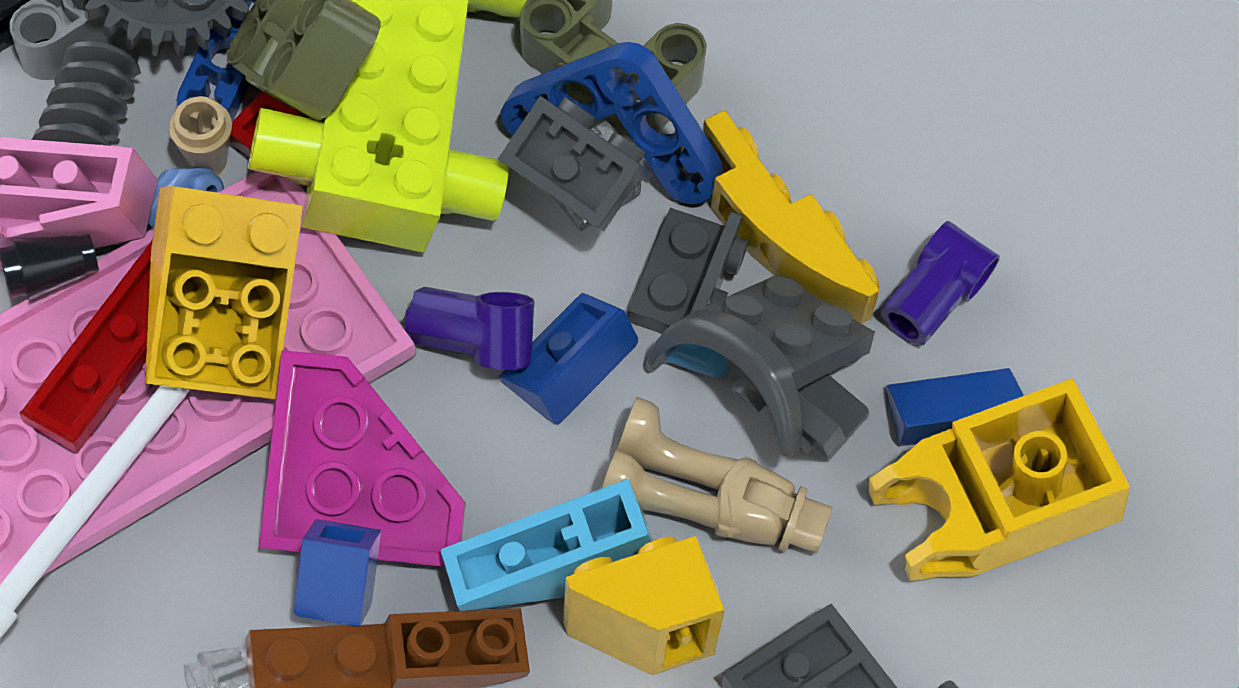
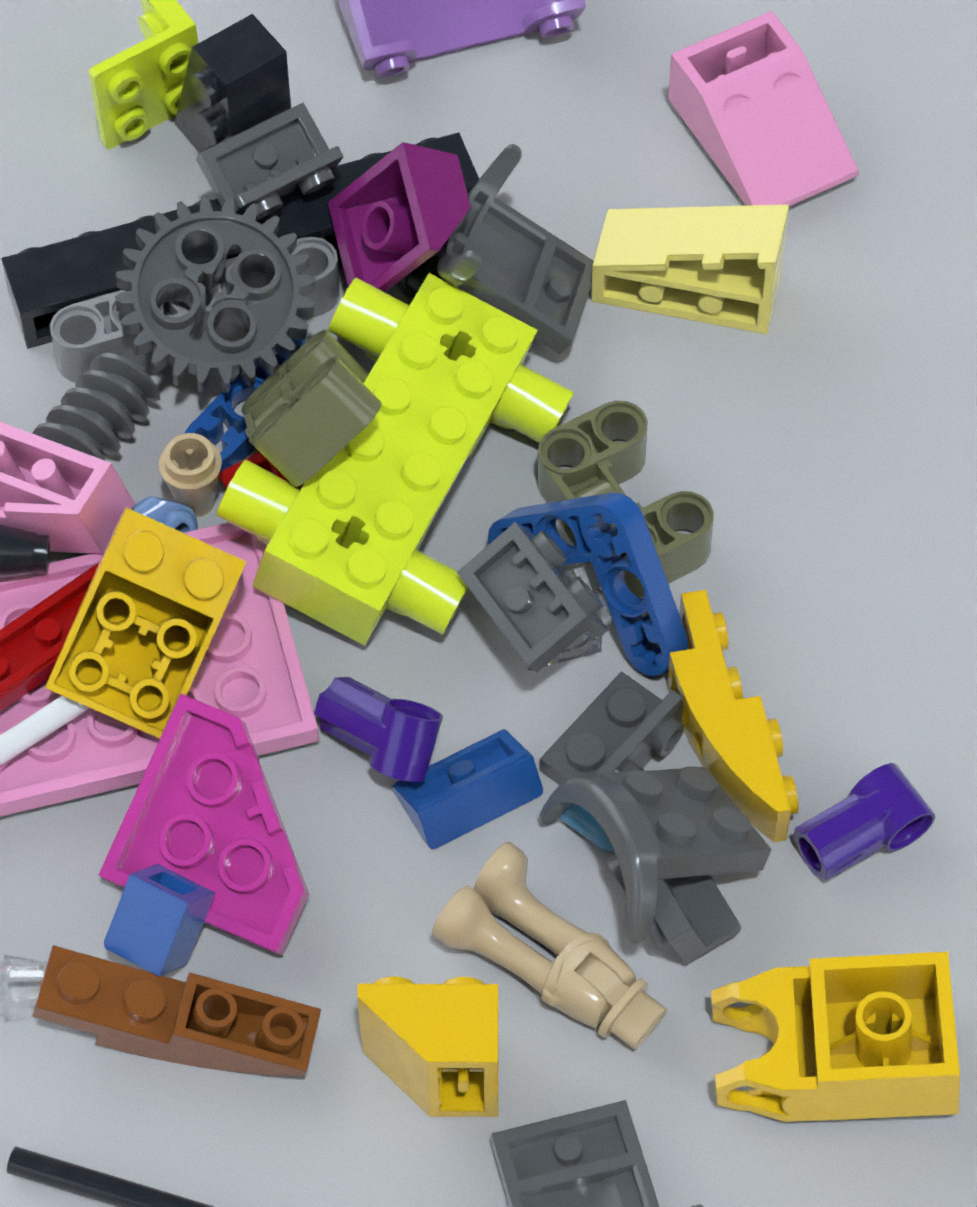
camera: 25 degrees right, 5 degrees down
(536, 553) = (330, 958): medium azure slope -> none
(932, 405) = (802, 936): blue slope -> none

